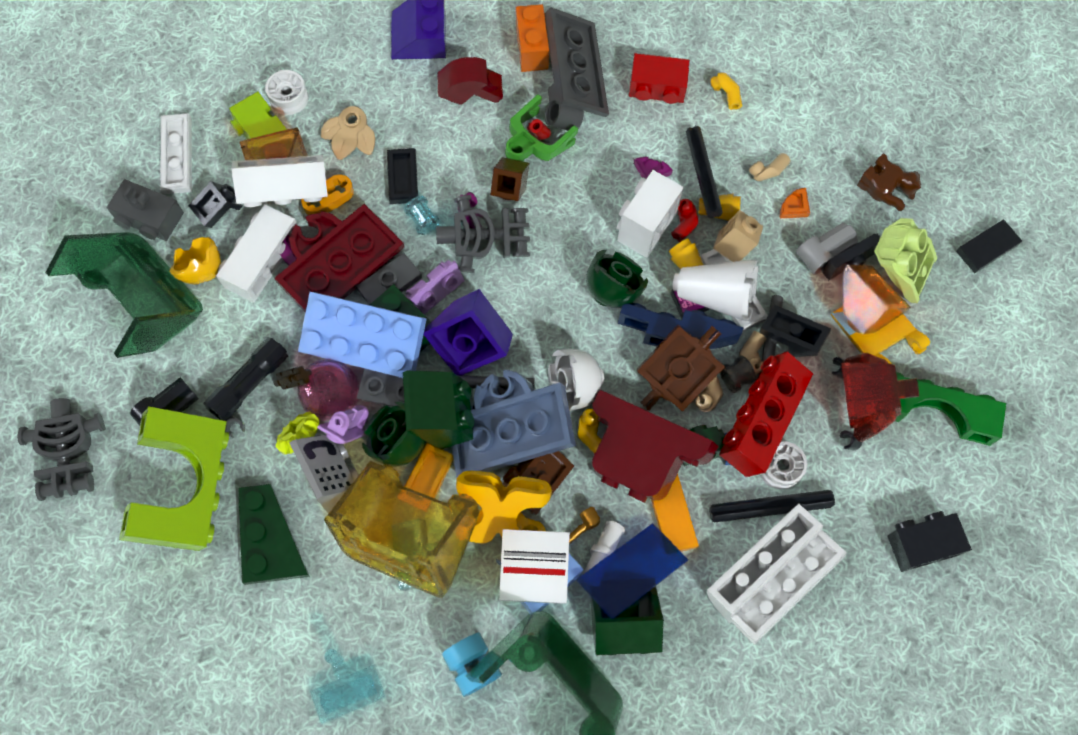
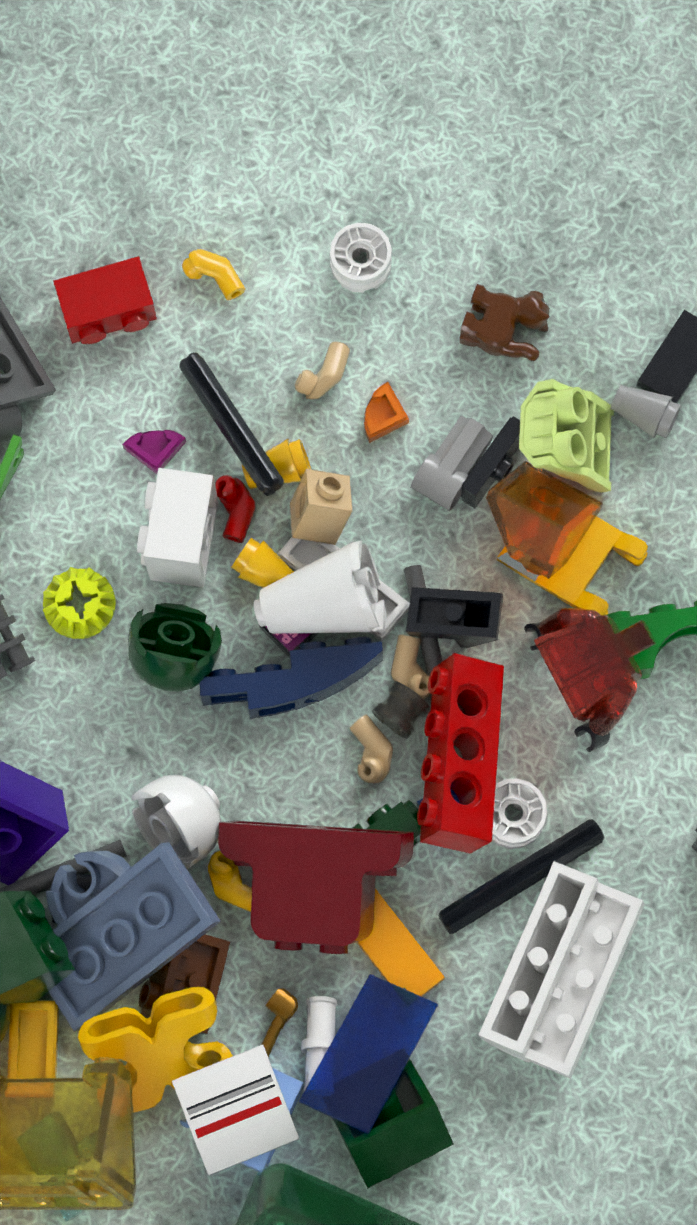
camera: 20 degrees left, 5 degrees up
(578, 244) = (97, 611): none -> neon yellow gear
(680, 368) = (317, 739): reddish brown plate -> none
(816, 104) = (348, 245): none -> white wheel
(958, 265) = (646, 410): none -> light grey cone

